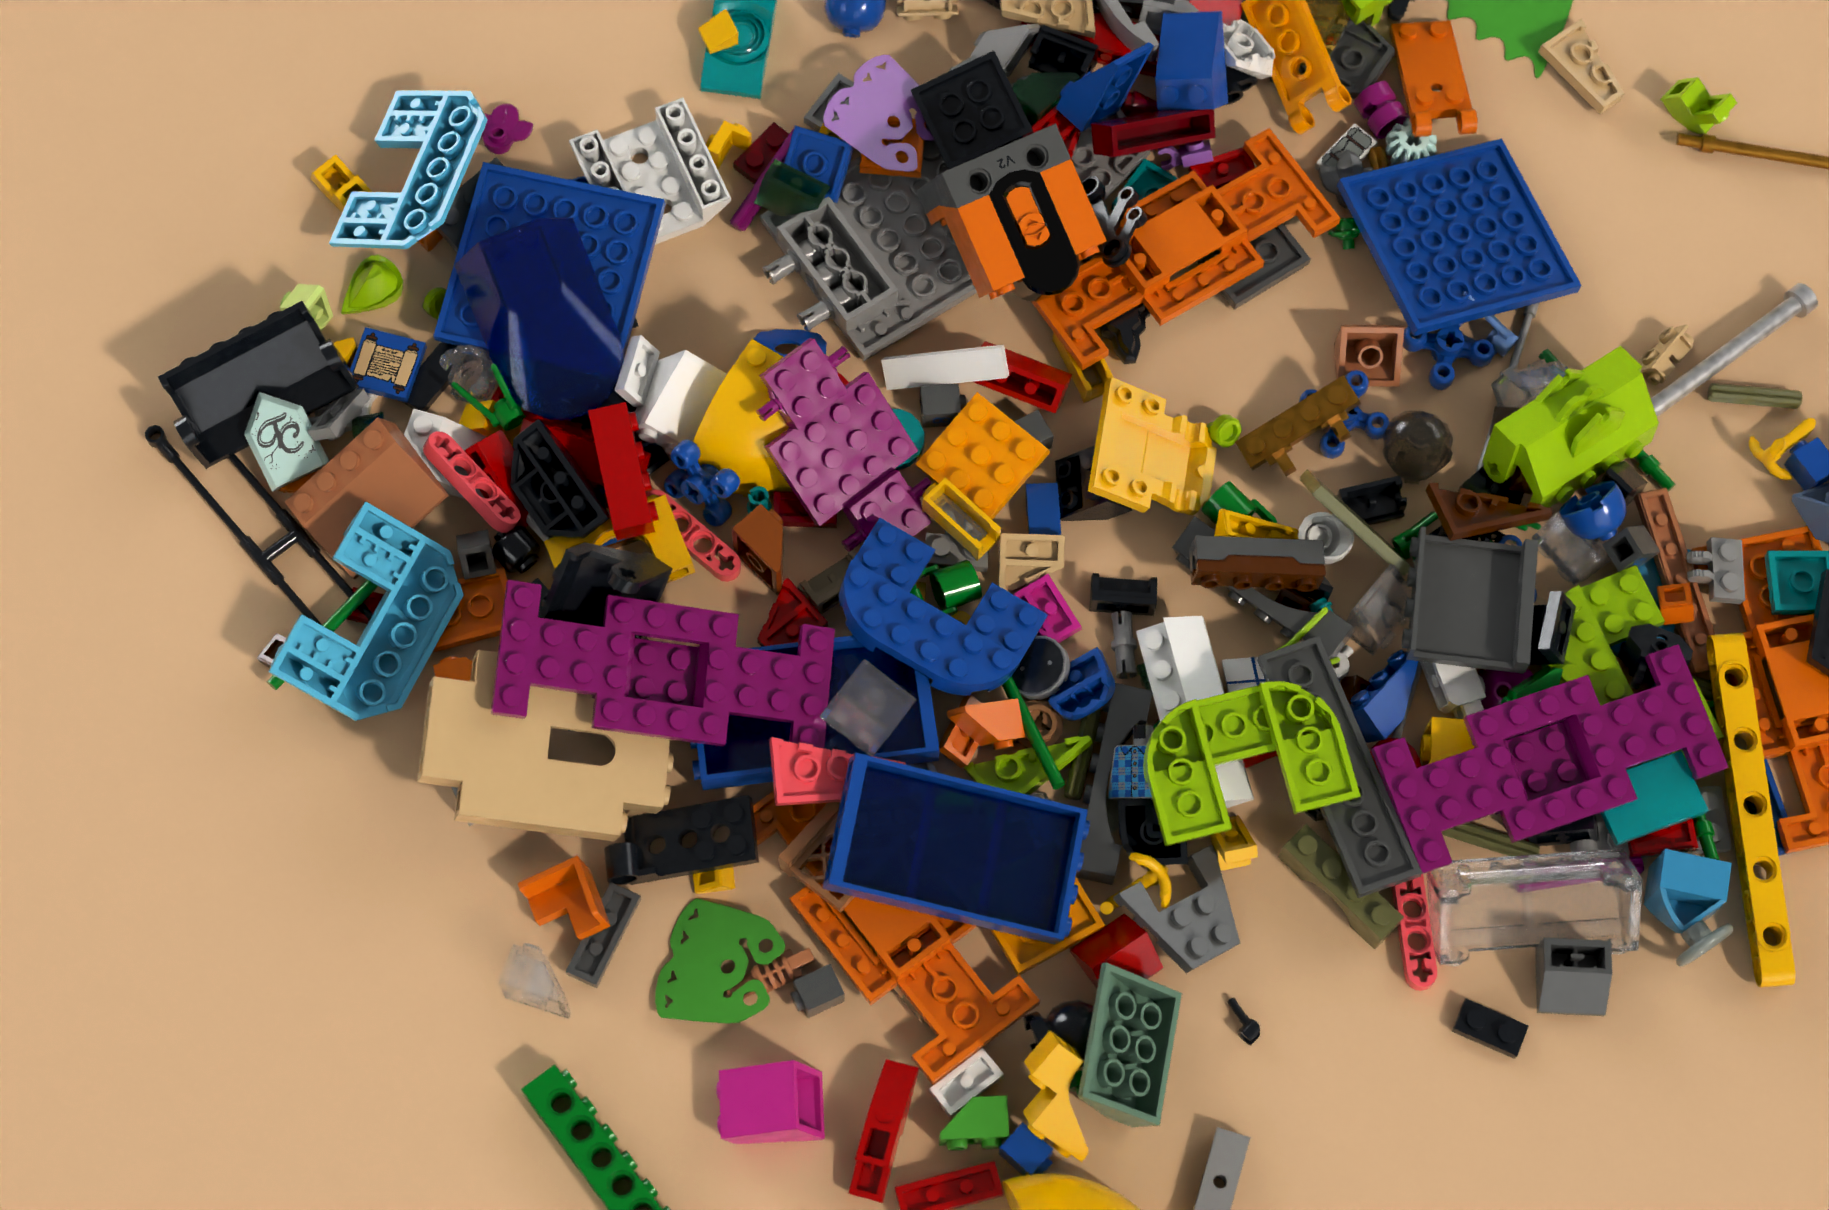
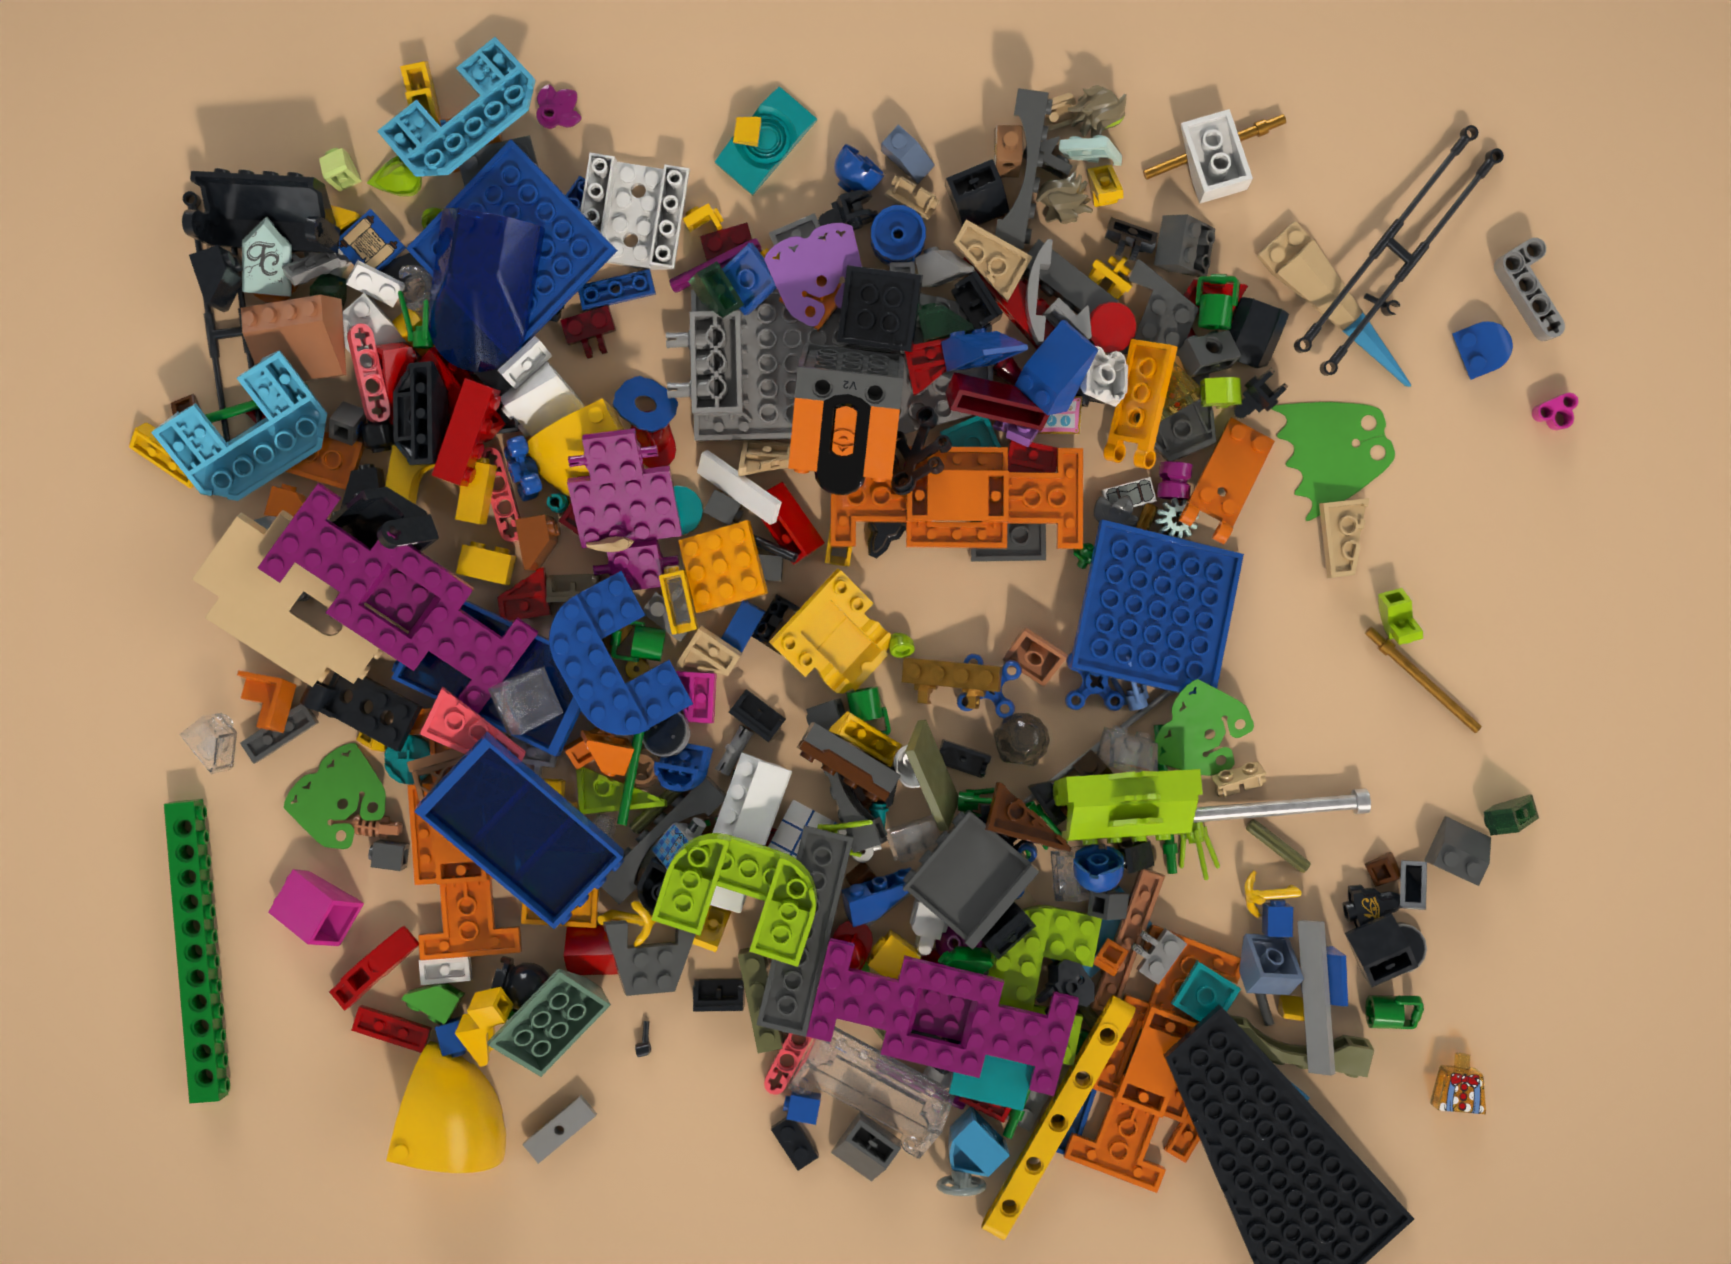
camera: 35 degrees right, 20 degrees up
(239, 478) = (217, 276): none -> black slope
(284, 716) = (147, 446): none -> yellow slope
(420, 395) = (375, 283): none -> white plate
(673, 315) = (588, 326): none -> dark red hinge
(693, 251) = (632, 287): none -> blue tile
(731, 597) = (486, 564): none -> yellow brick
(765, 883) = (396, 762): none -> teal tile
(851, 496) = (611, 544): none -> tan bar
(873, 42) = (849, 210): none -> black hinge
(937, 41) = (909, 226): none -> blue wheel
(949, 327) = (763, 457): none -> tan wing
(1029, 405) = (776, 549): none -> black piece
(1230, 117) = (1065, 422): none -> sticker
(1292, 915) = (718, 995): none -> black hinge
(1470, 977) = (802, 1107): none -> blue brick
(1578, 312) = (1189, 726): none -> bright green piece
(1665, 436) = (1196, 836): none -> lime plant

